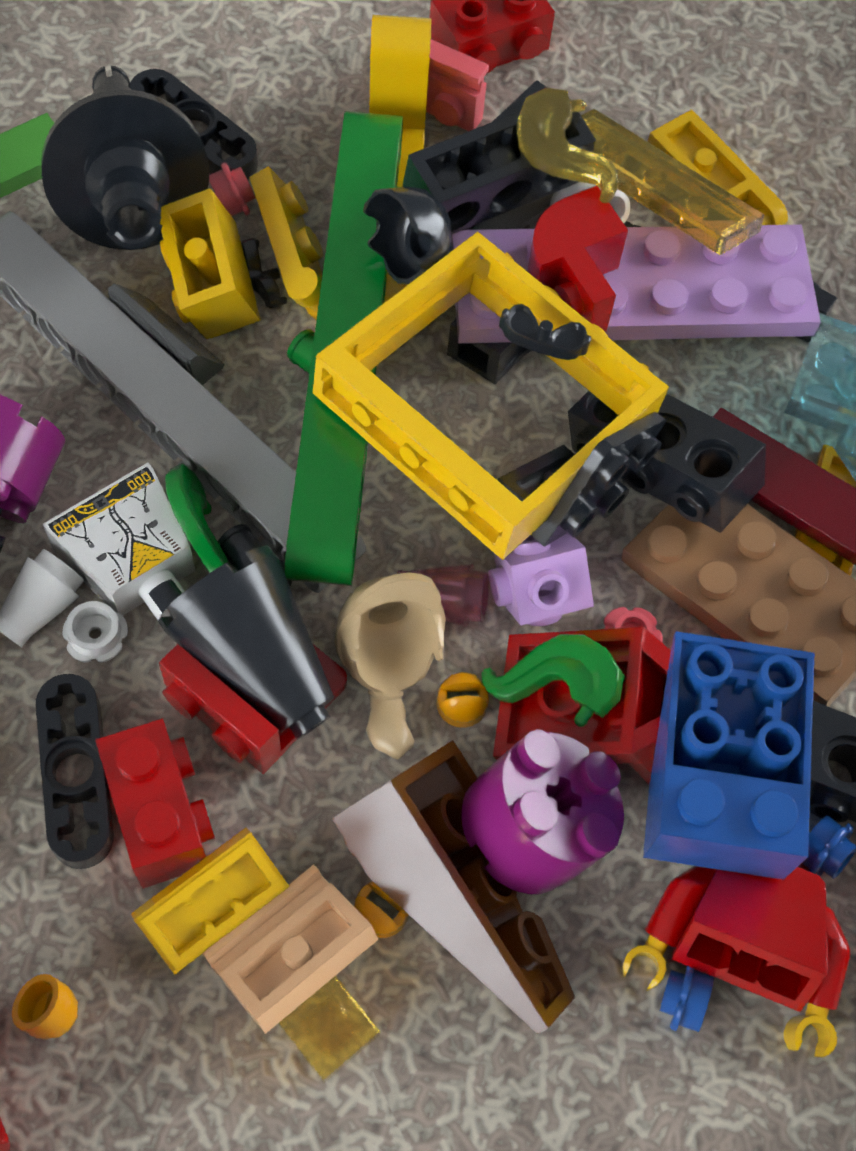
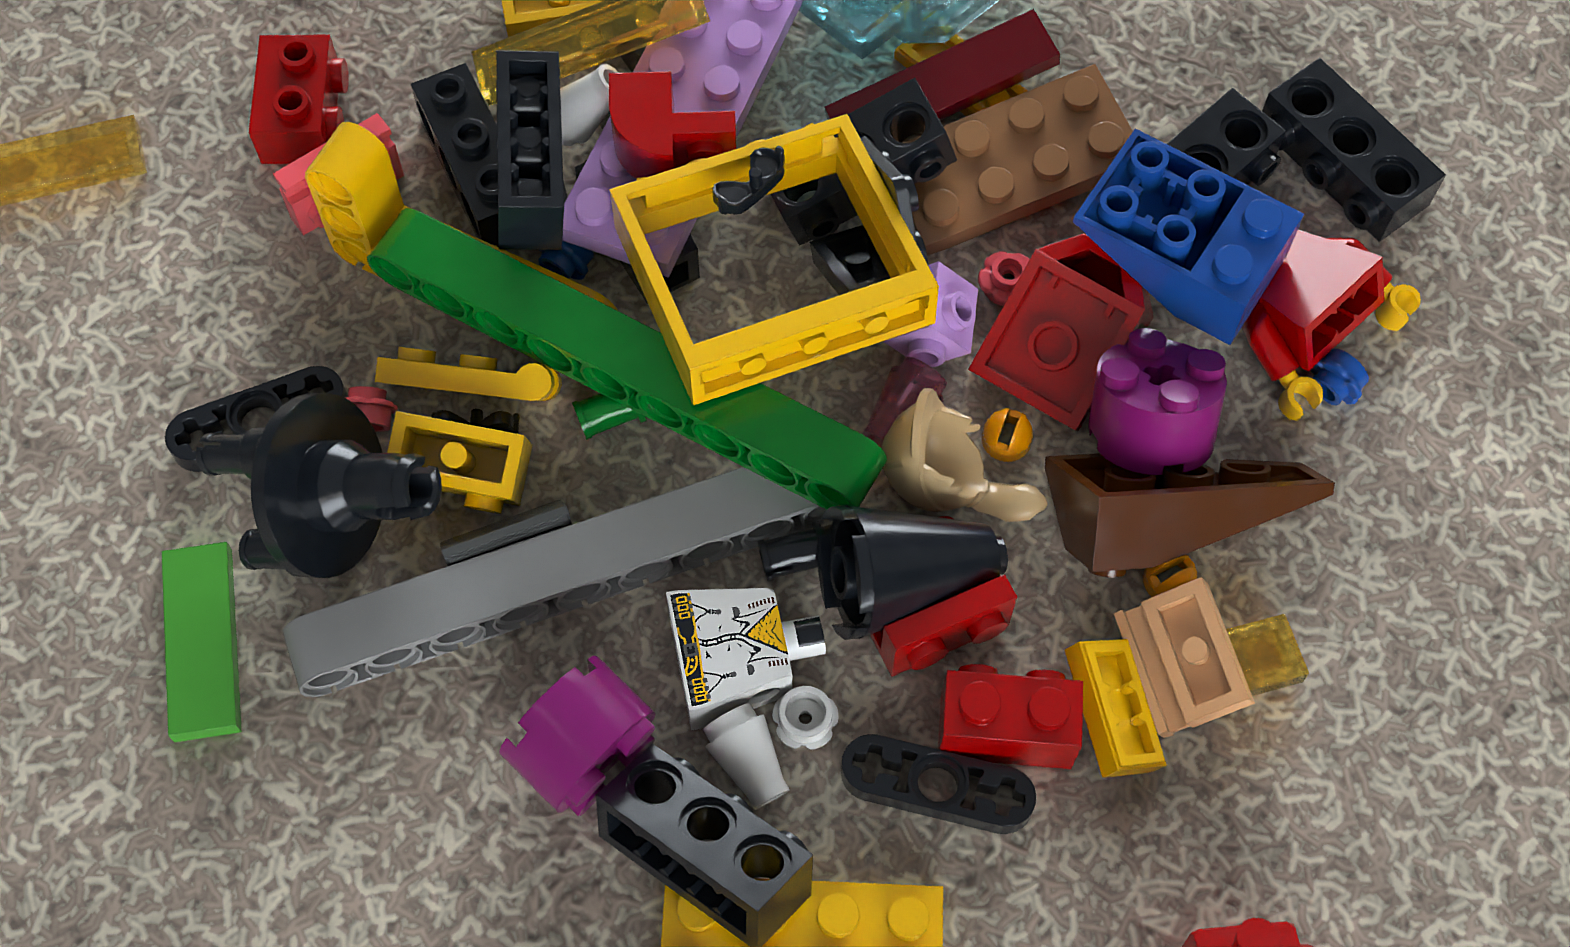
camera: 60 degrees left, 0 degrees up
(45, 1007) = (1152, 892): light orange hinge -> none
(189, 507) = (748, 576): green piece -> none
(409, 232) = (579, 247): black hair -> none
(545, 147) = (544, 91): clear yellow piece -> none
(577, 660) = (1034, 318): green piece -> none

